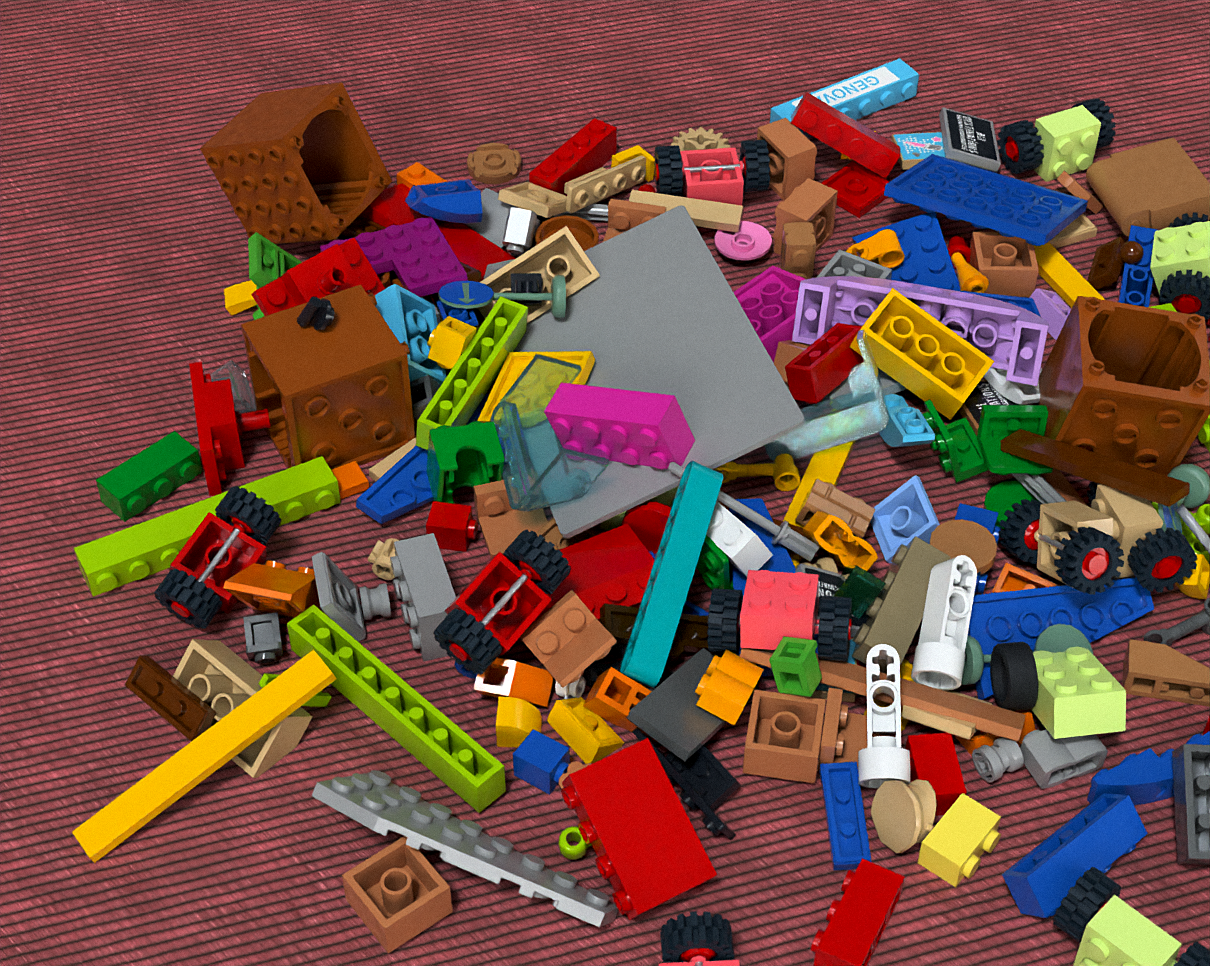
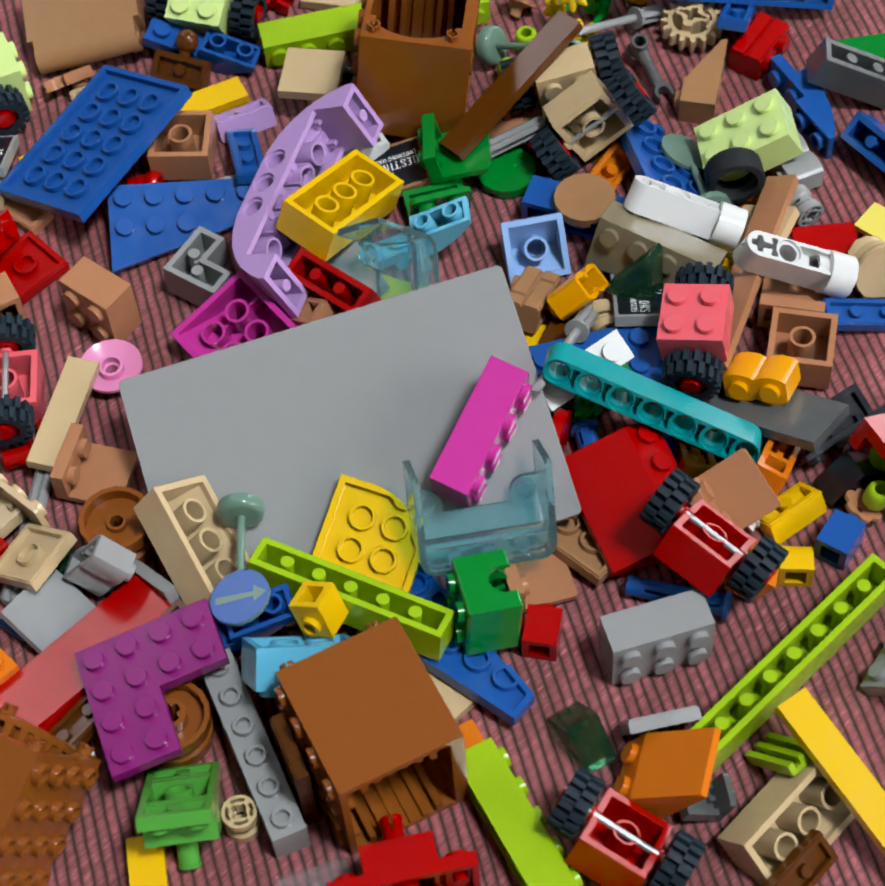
camera: 85 degrees left, 10 degrees up
(316, 314) = (341, 701): black plate -> none
(319, 276) = (222, 753): red brick -> none
(346, 550) = (583, 736): none -> clear green slope
(375, 601) = (649, 695): light grey wheel -> none
(380, 558) = (593, 684): tan gear -> none
(447, 201) = (43, 638): blue slope -> none
(526, 284) = (221, 544): black tile -> none
(796, 666) = (755, 314): bright green brick -> none
(798, 249) = (157, 309): medium nougat brick -> none
(880, 248) = (160, 240): light orange piece -> none
(968, 276) = (214, 167): light orange cone -> none

